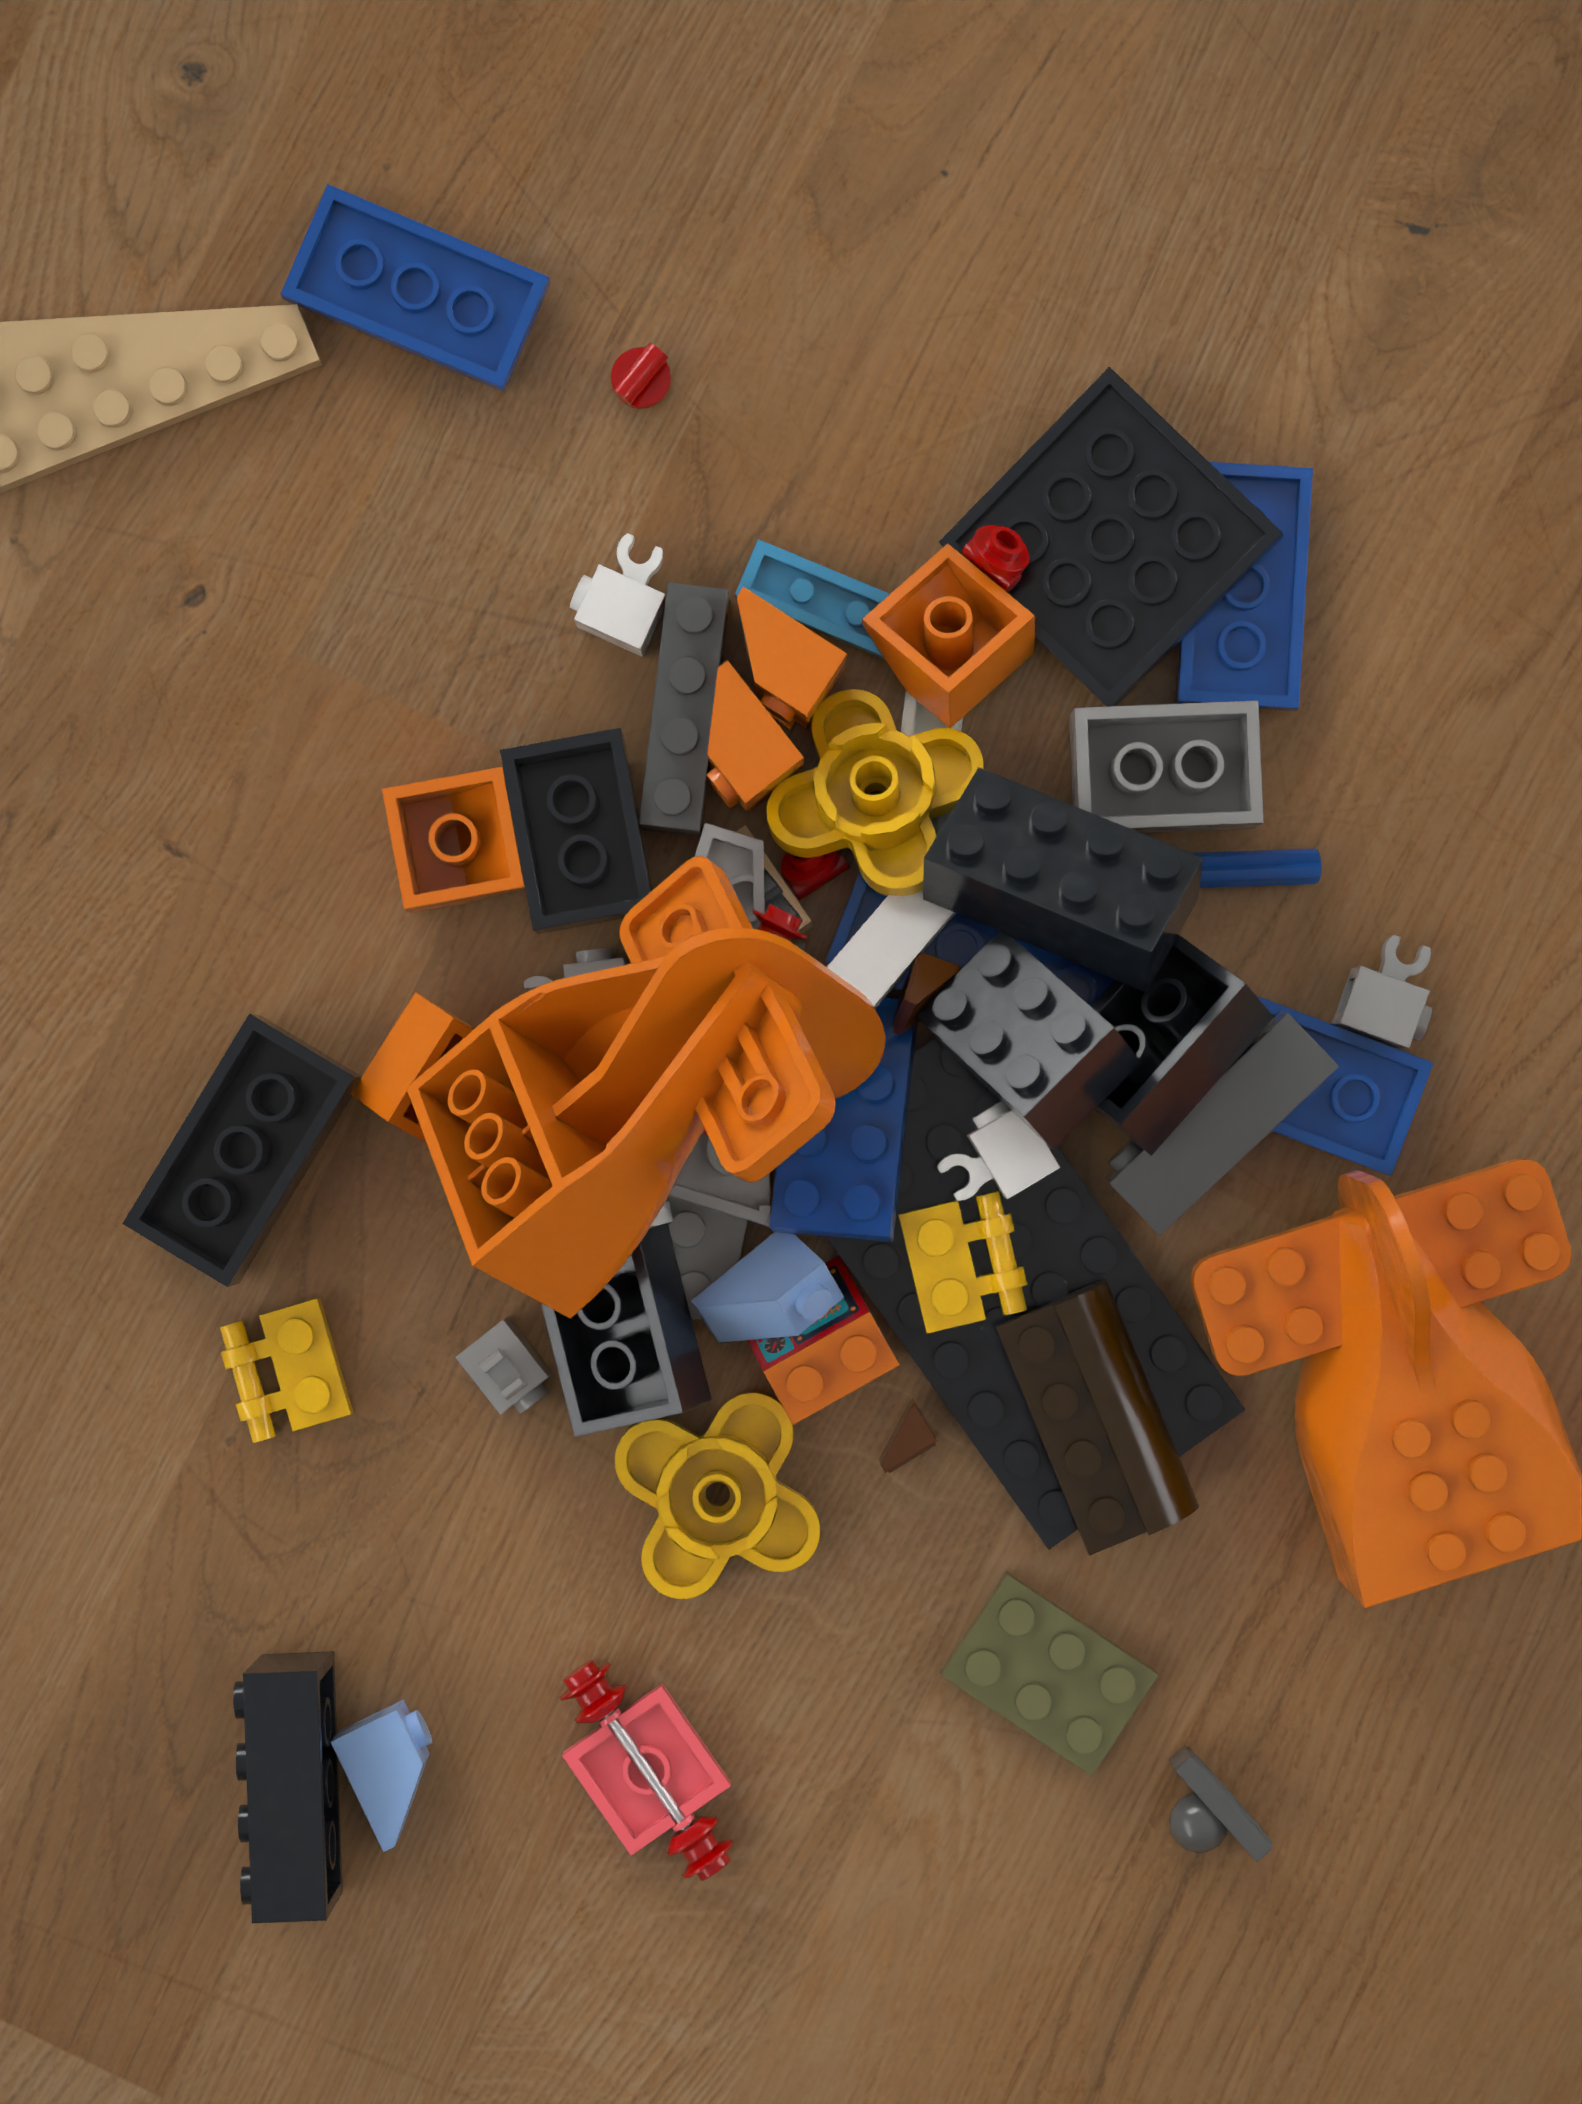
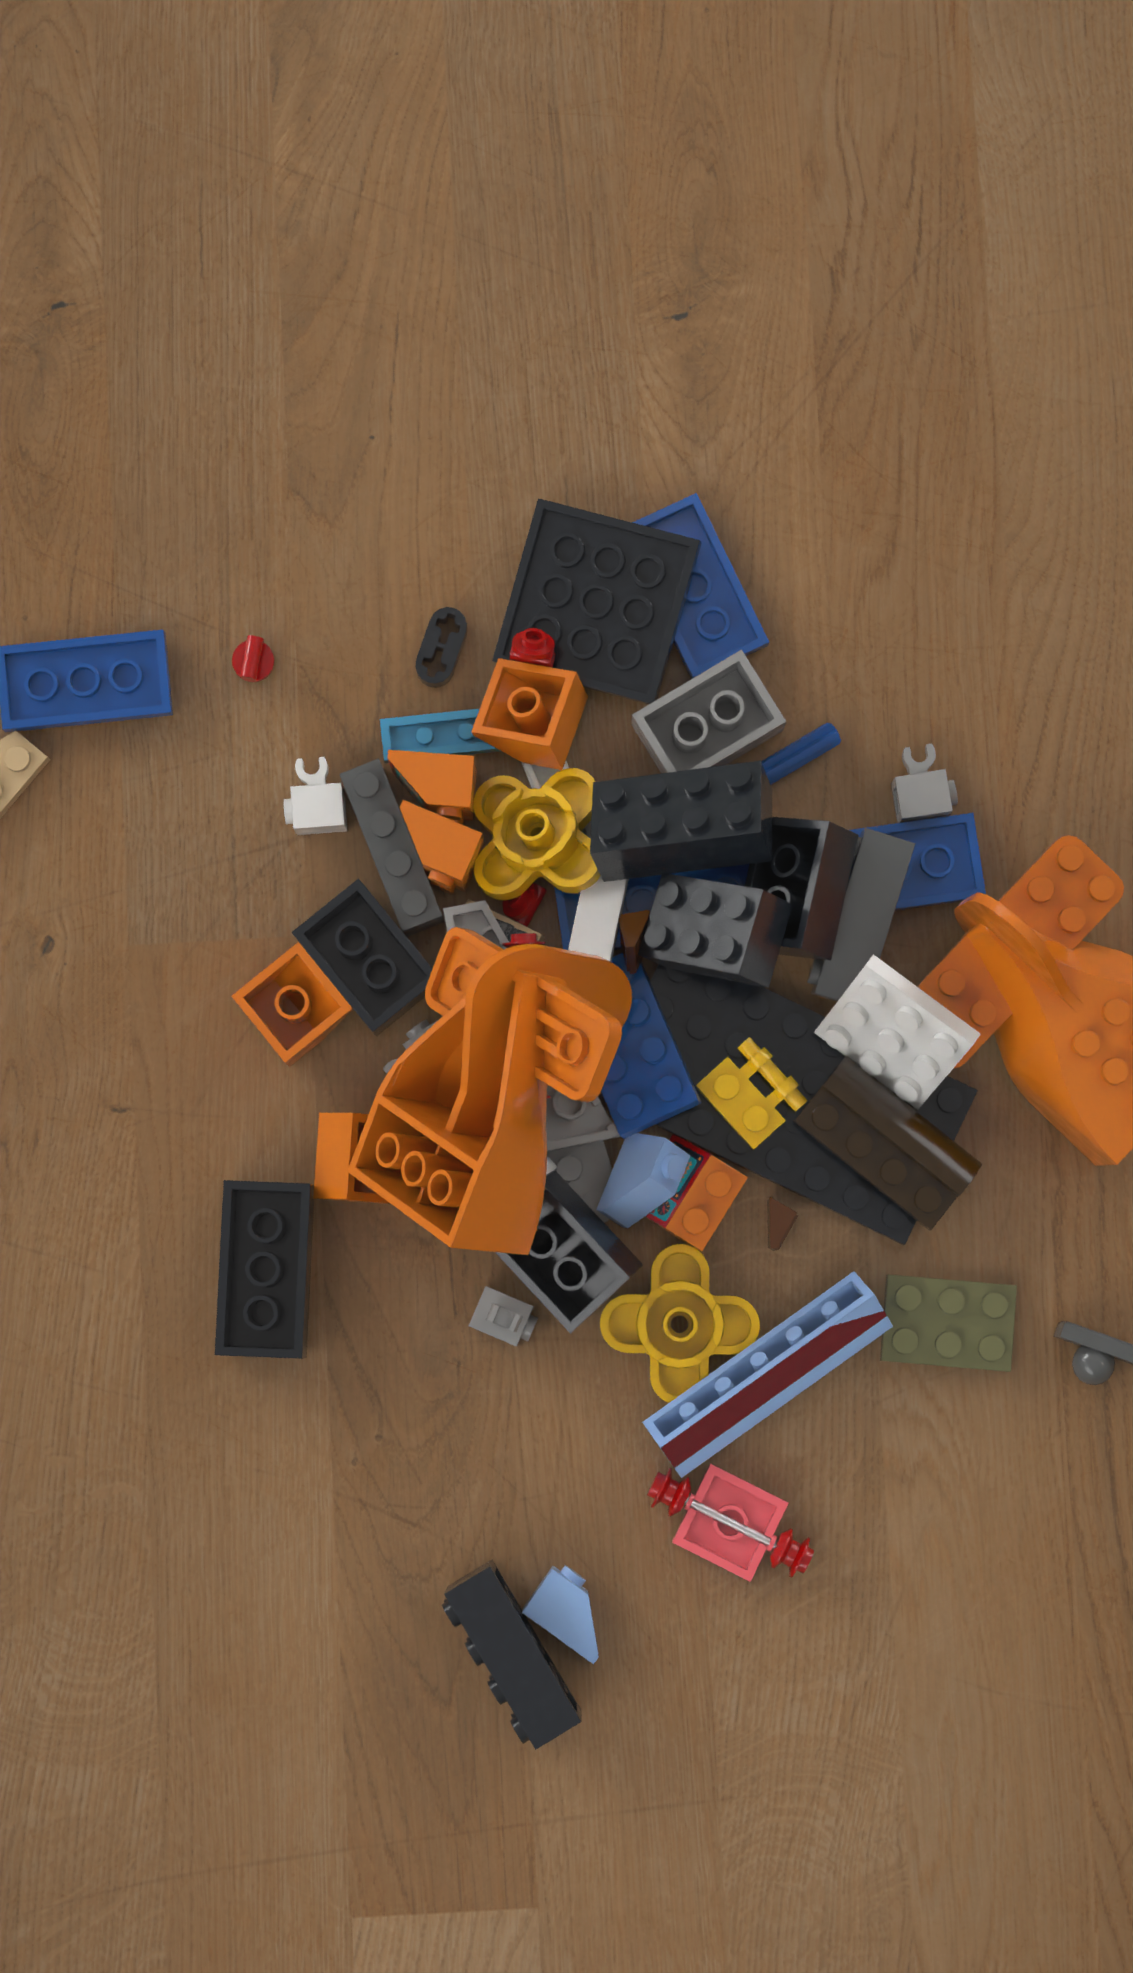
camera: 30 degrees left, 5 degrees down
(304, 1365) = (375, 1386): yellow plate -> none
(791, 1617) = (768, 1374): none -> light blue brick
(876, 478) = (450, 650): none -> black beam
(1006, 1153) = (742, 1010): white brick -> none
(1183, 1291) = (896, 1032): none -> white plate

